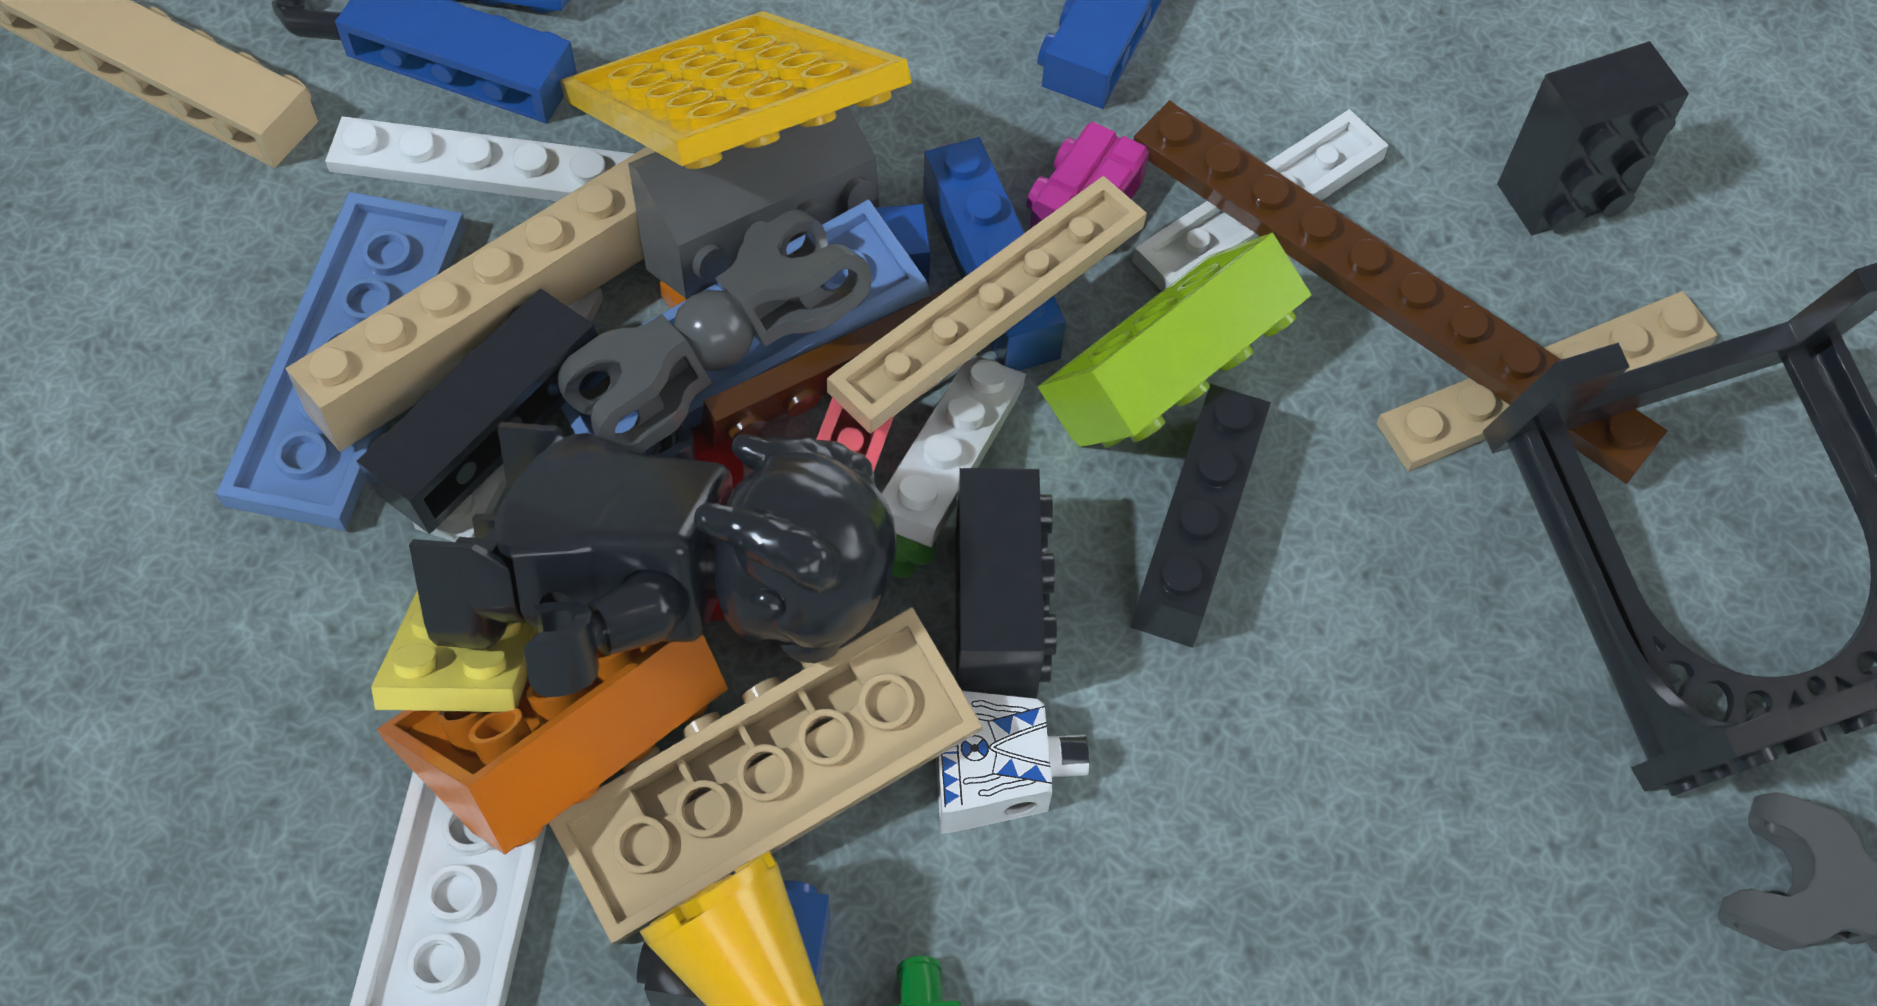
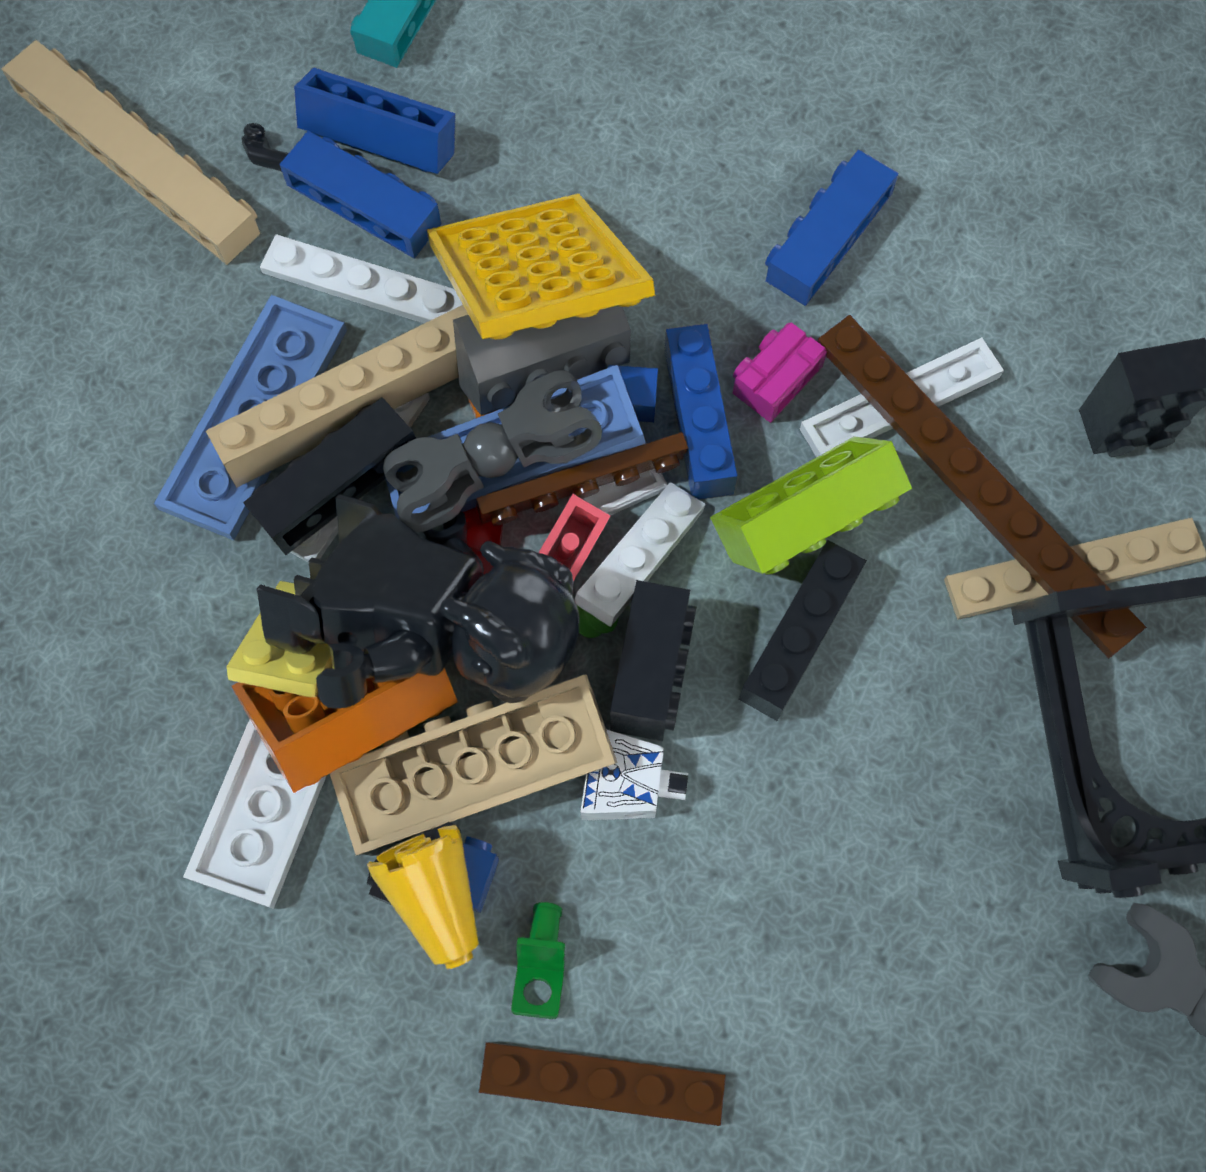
camera: 15 degrees right, 10 degrees up
(985, 304) = (683, 458): tan plate -> none

